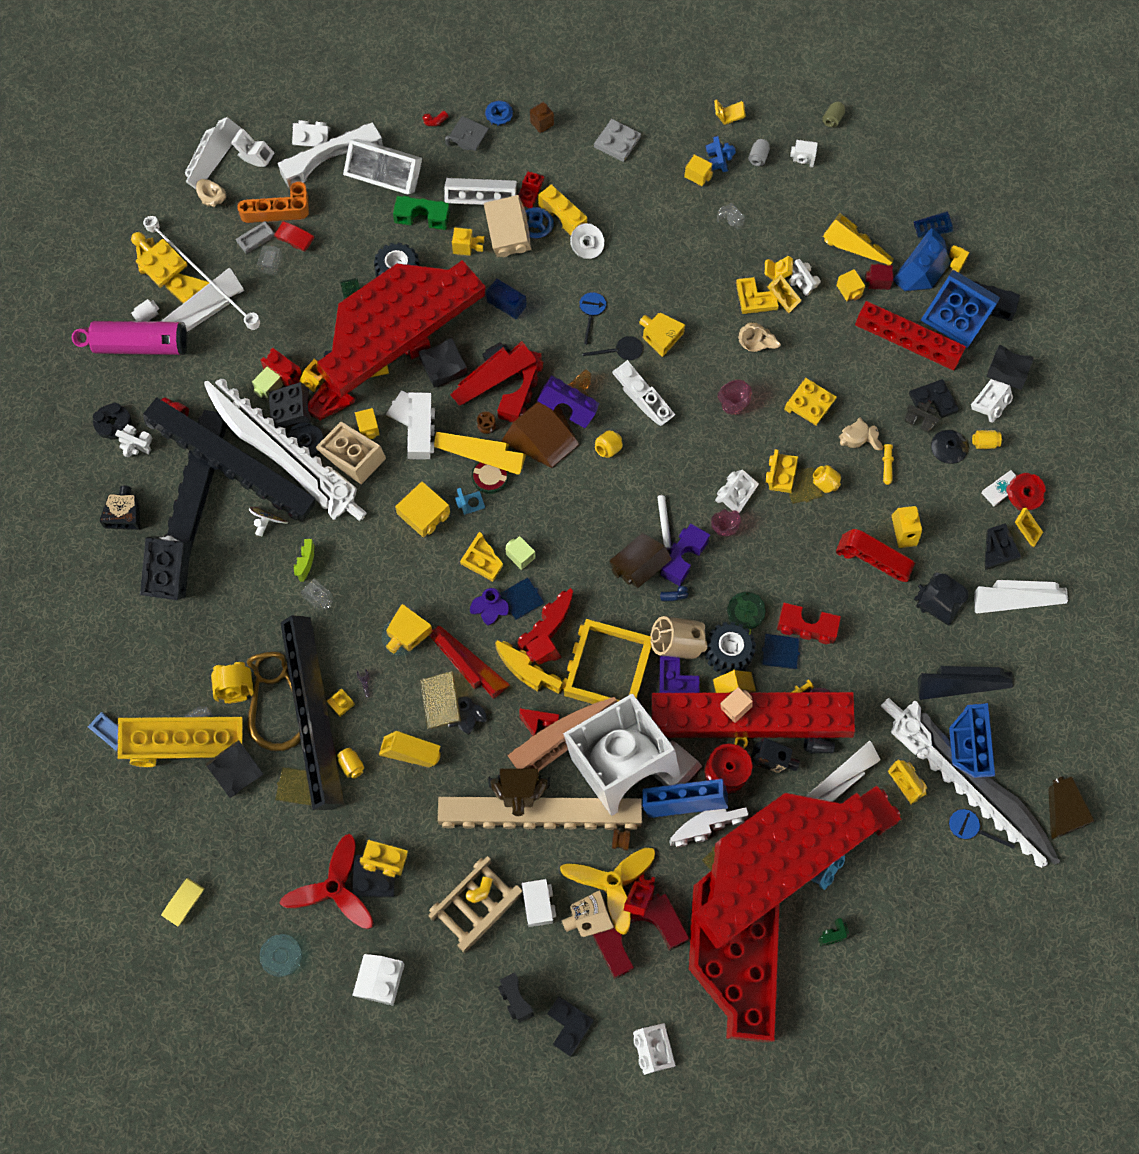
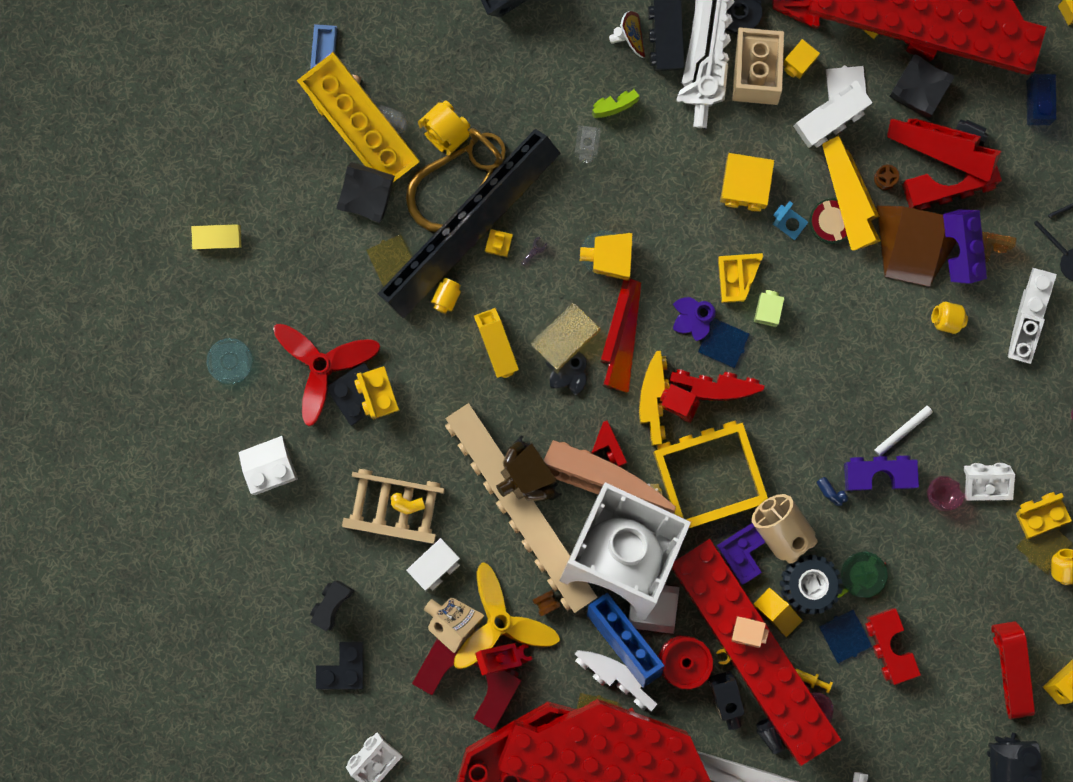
camera: 60 degrees right, 15 degrees up
(640, 560) = (841, 435): dark brown brick -> none

